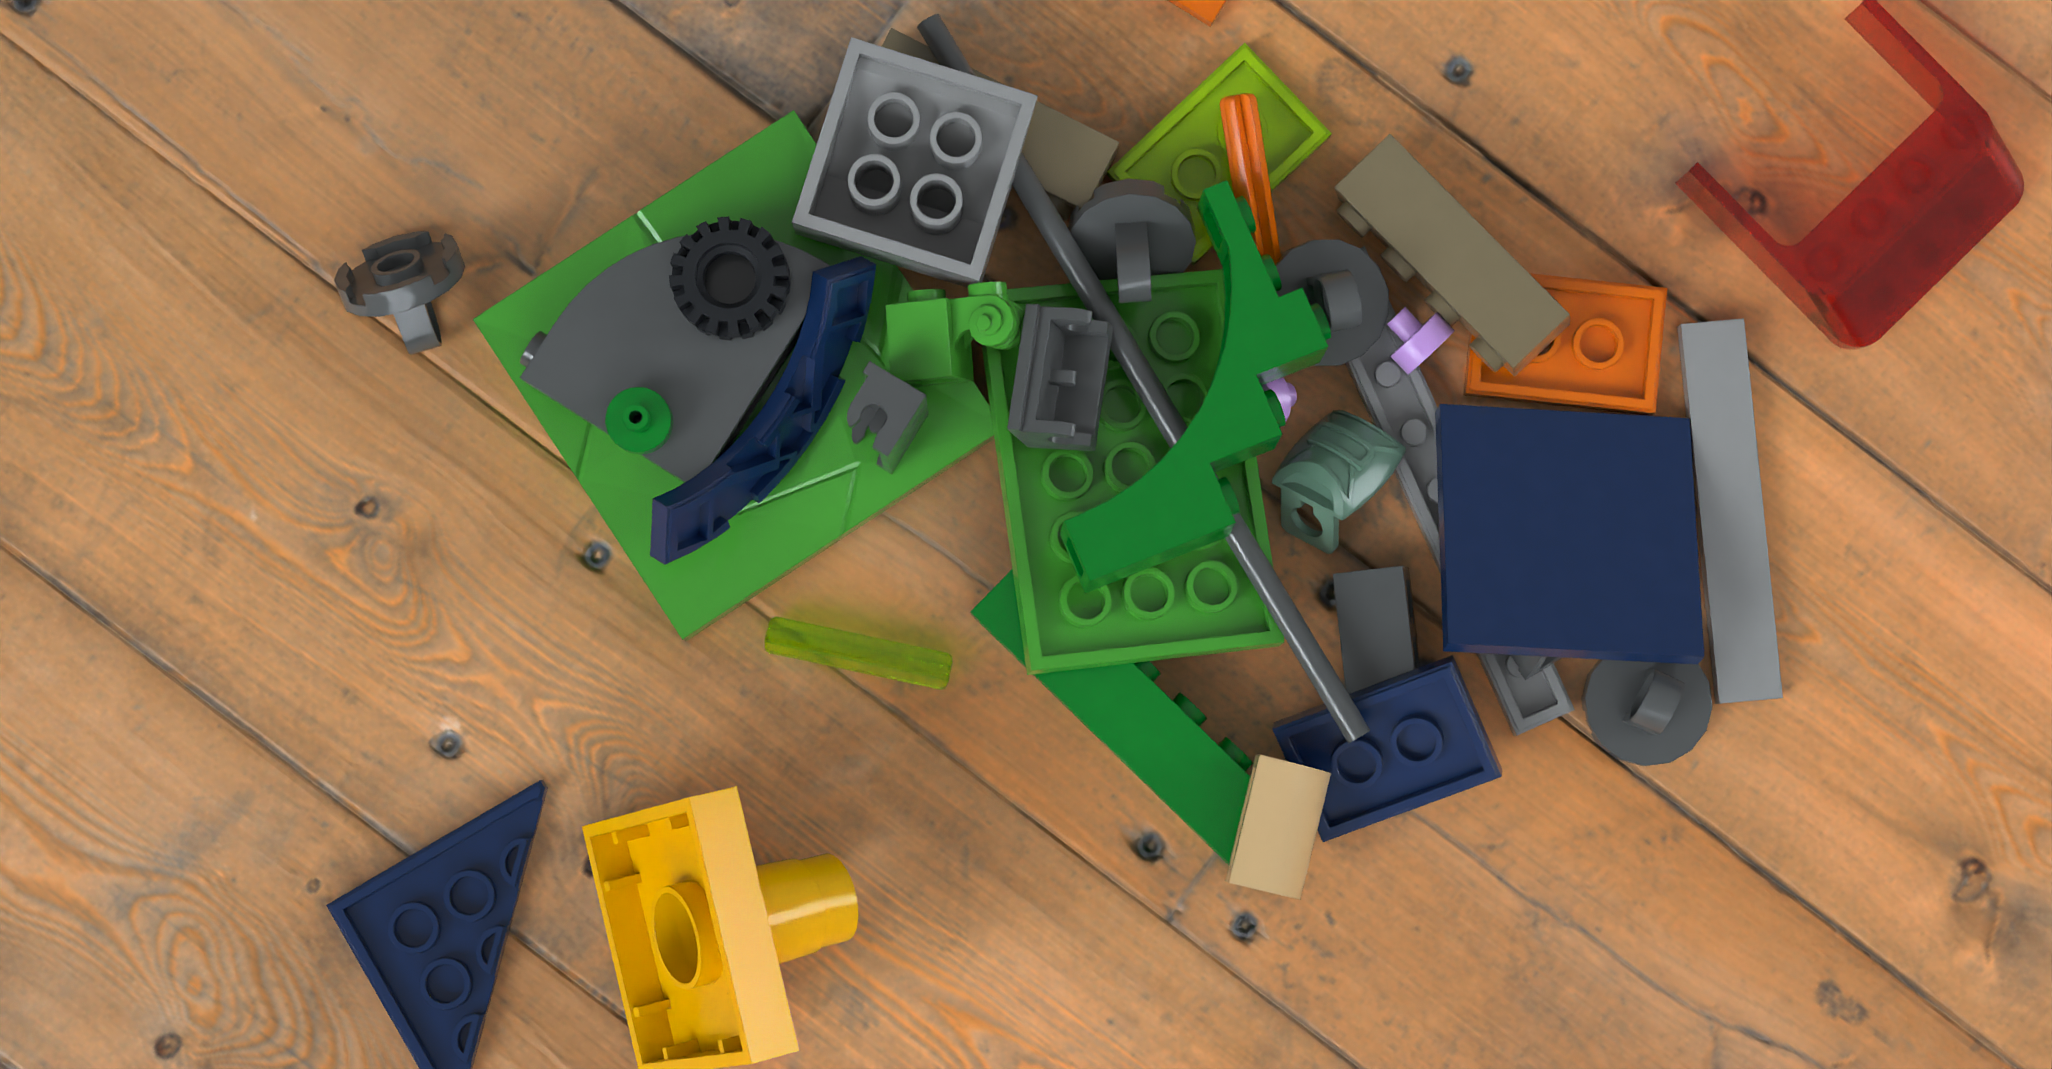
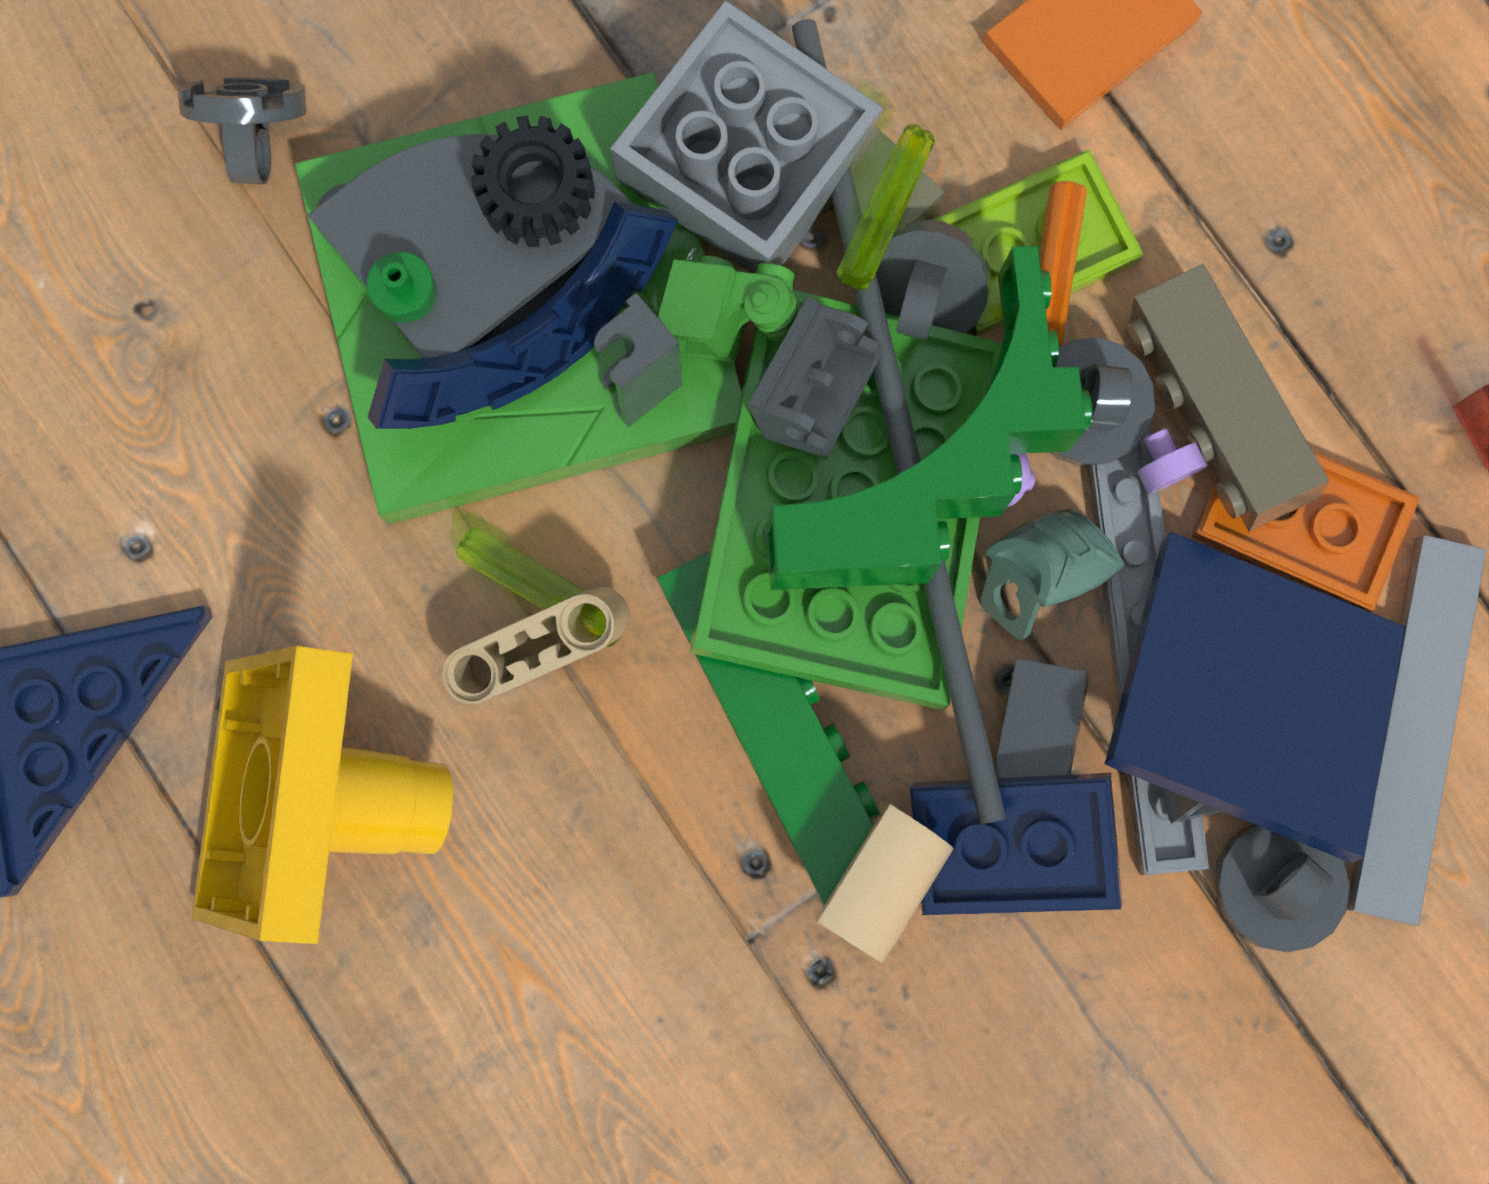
camera: 25 degrees right, 5 degrees down
(911, 705) = (499, 654): none -> tan beam
(1070, 183) = (886, 207): none -> clear neon green axle

